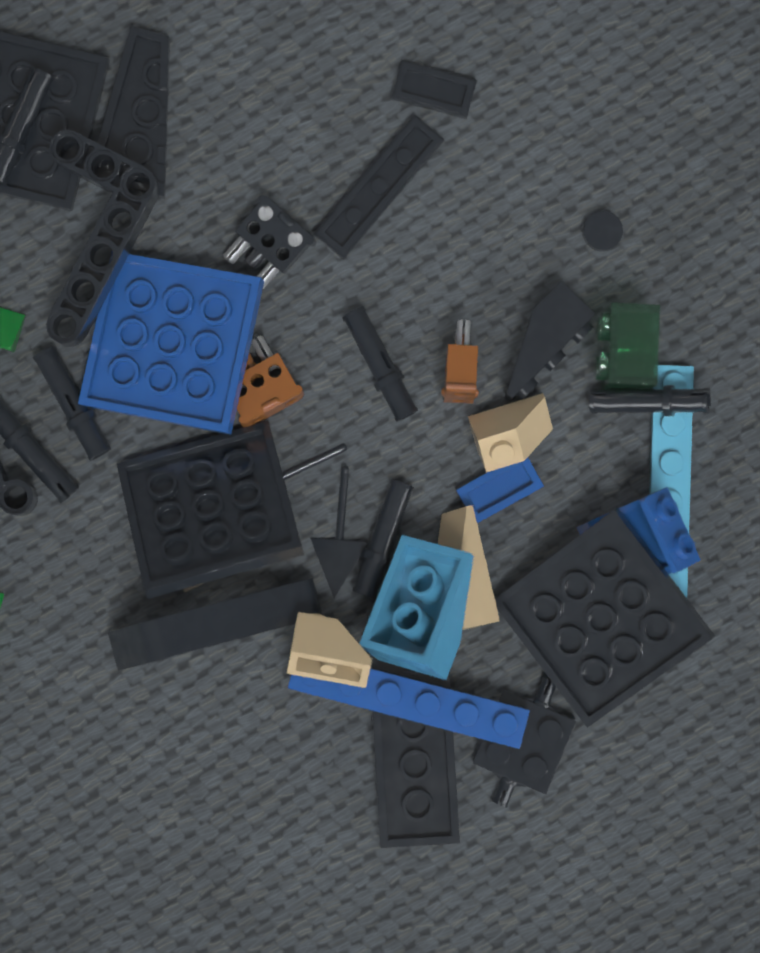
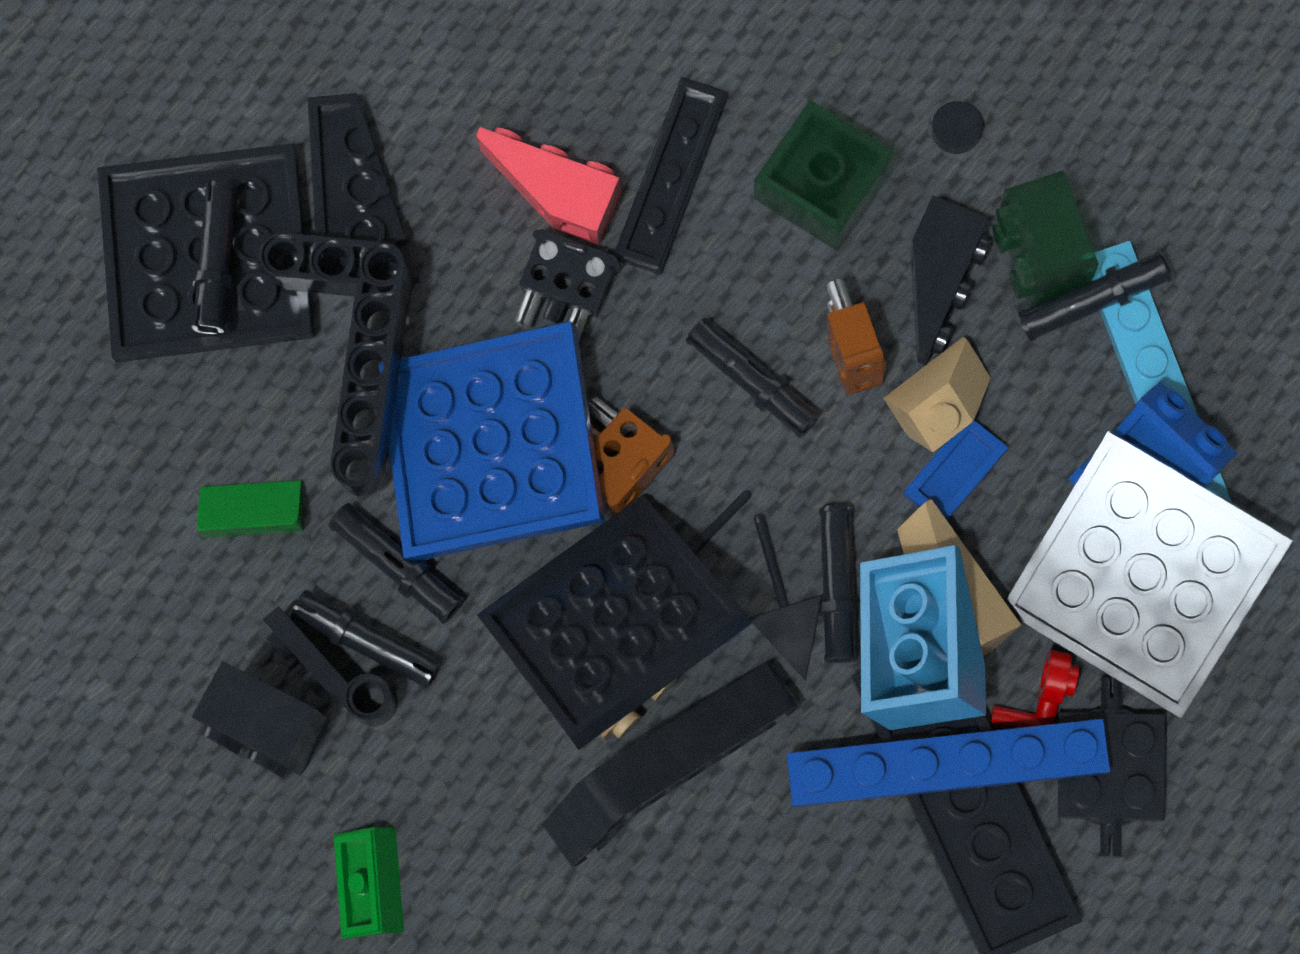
camera: 10 degrees left, 10 degrees down
(295, 173) = (564, 192): none -> coral slope
(327, 652) = (826, 737): tan slope -> none
(434, 89) = (692, 41): black tile -> none
(489, 233) = (823, 175): none -> clear green brick
(510, 668) = (1057, 680): none -> red plate

